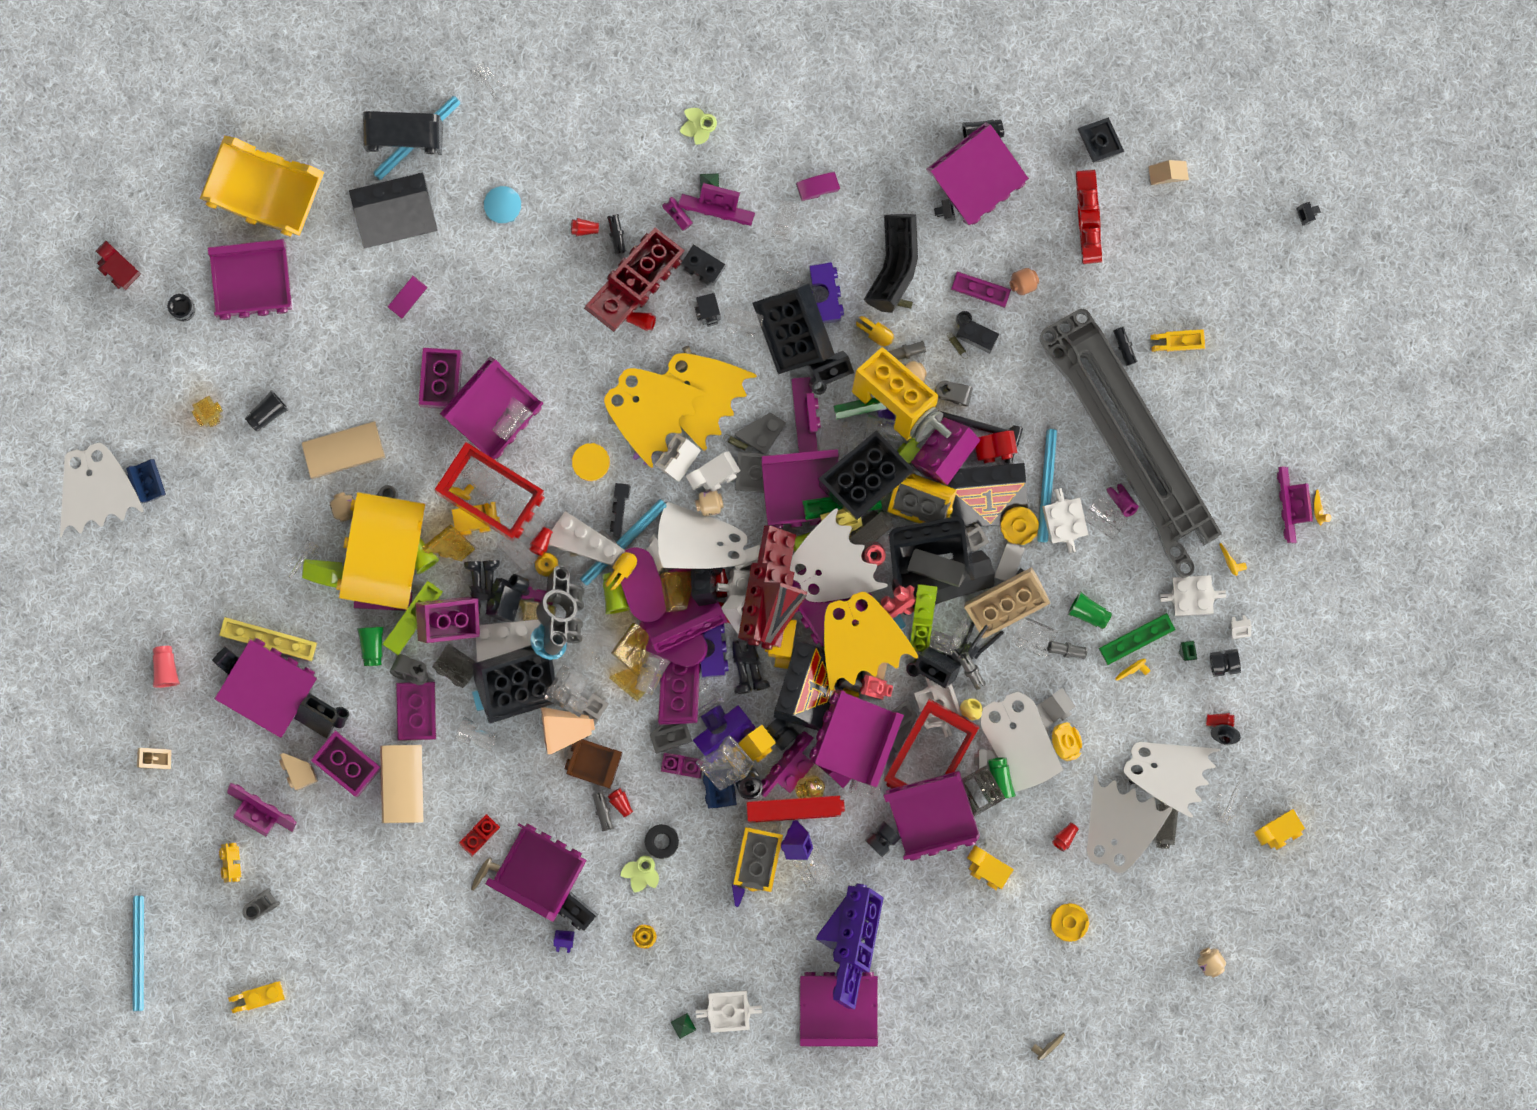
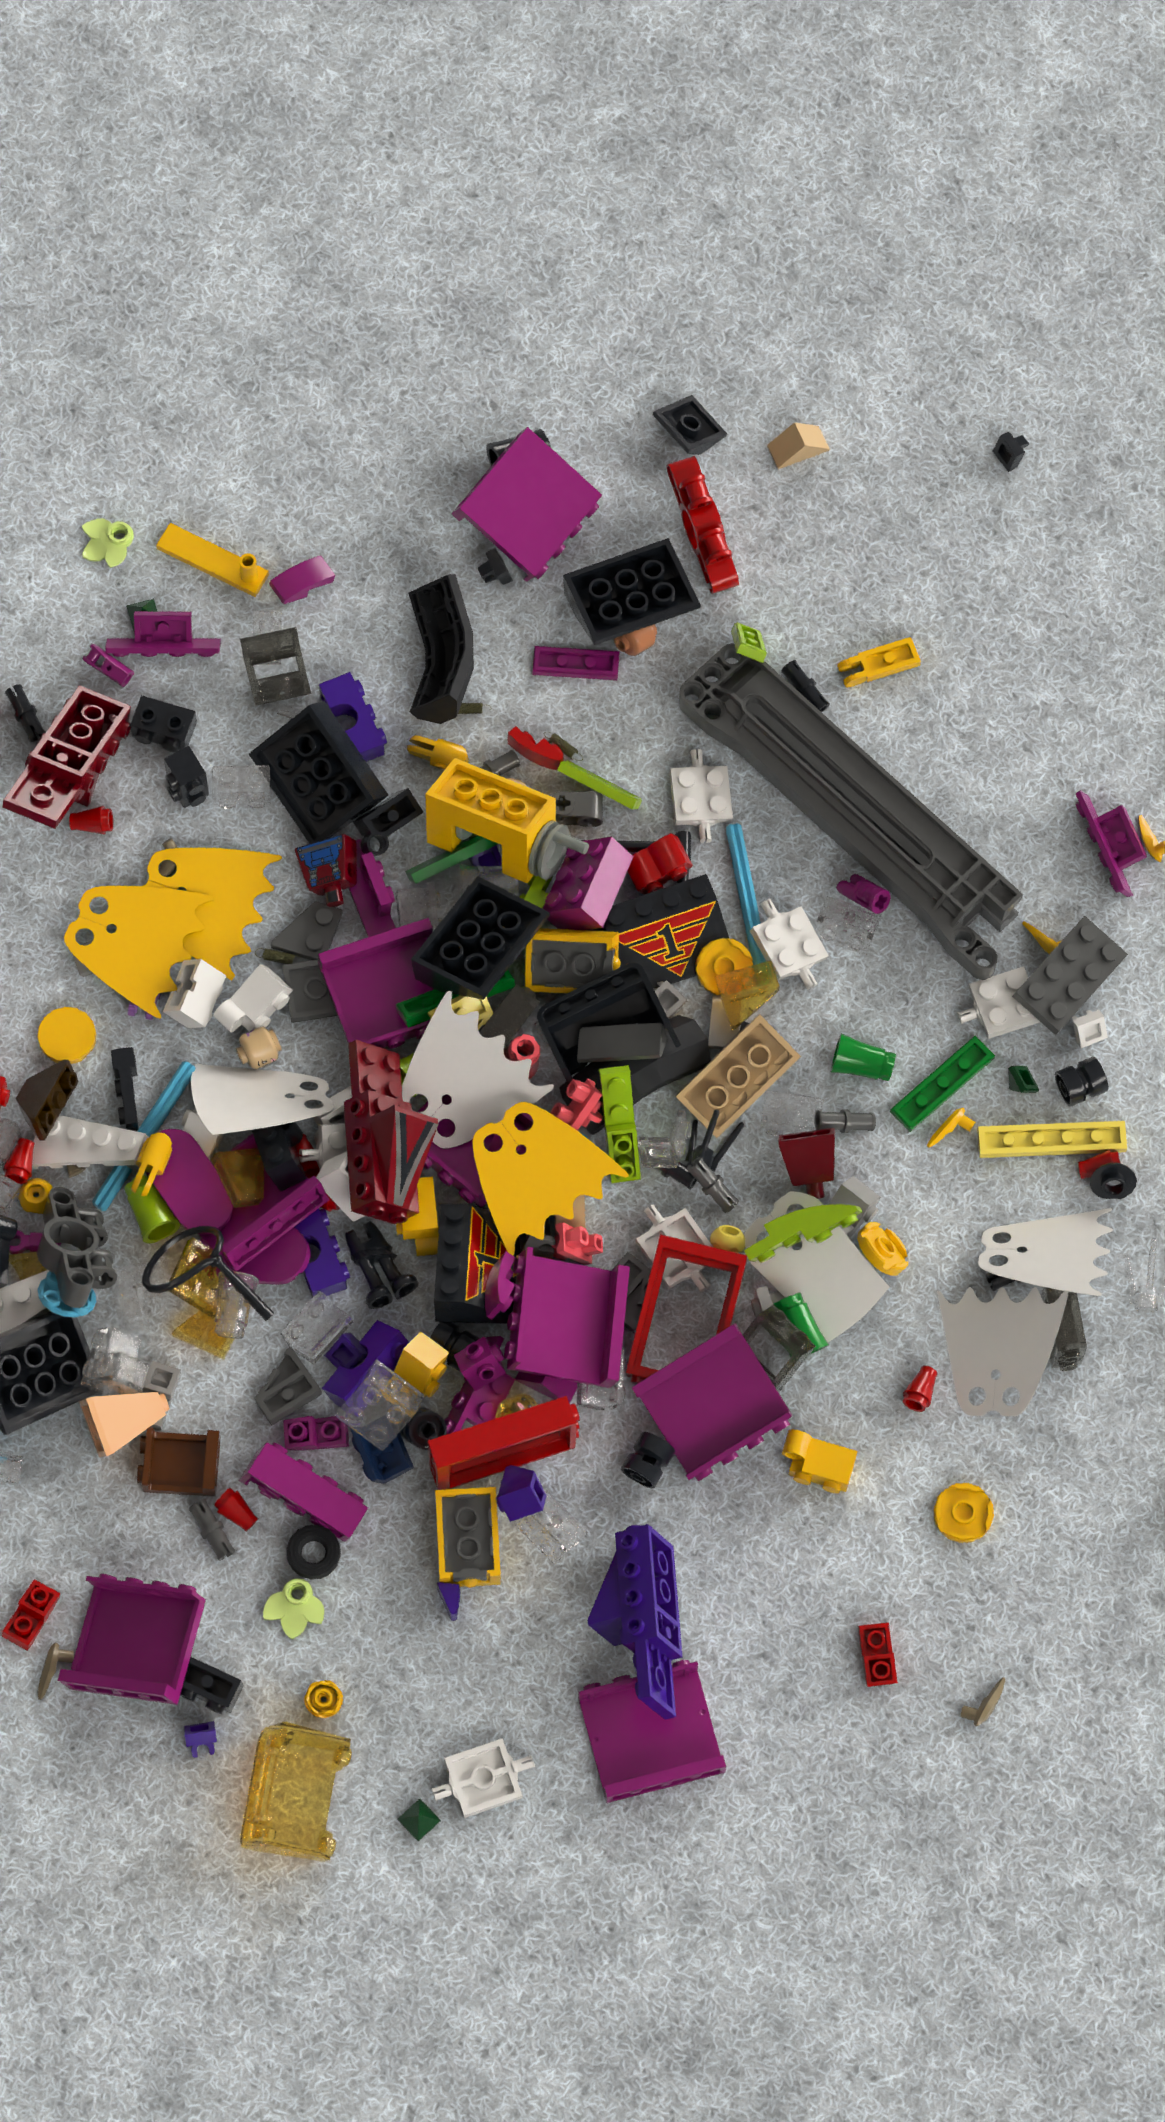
camera: 20 degrees left, 15 degrees down
(566, 503) = (46, 1096): none -> dark brown slope
(610, 991) = (293, 1791): none -> clear yellow windscreen
(645, 647) = (214, 1261): none -> black piece
(664, 804) = (304, 1490): none -> magenta wedge
(679, 694) = (290, 1332): magenta tile -> none
(763, 155) = (211, 559): none -> yellow piece
(783, 246) = (269, 648): none -> clear smoke window
(784, 394) = (329, 867): none -> torso
(794, 754) = (480, 1363): none -> magenta brick
(816, 712) = (499, 1287): none -> magenta slope
(934, 667) = (657, 1192): black hinge -> none
(942, 349) = (542, 753): none -> red slope
(973, 380) = (600, 784): none -> lime tile
(976, 334) = (585, 720): black hinge -> none
(990, 998) = (877, 1654): none -> red slope
(1025, 717) = (812, 1222): none -> lime slope
(1028, 255) = (630, 592): none -> black slope
(1028, 547) = (746, 991): none -> clear yellow wing
(1036, 403) = (701, 795): none -> white plate
(1037, 670) = (809, 1158): none -> dark red torso
(1095, 310) = (748, 642): none -> lime tile
(1195, 695) = (1051, 1139): none -> light yellow plate
(1238, 590) = (1070, 975): none -> dark grey plate

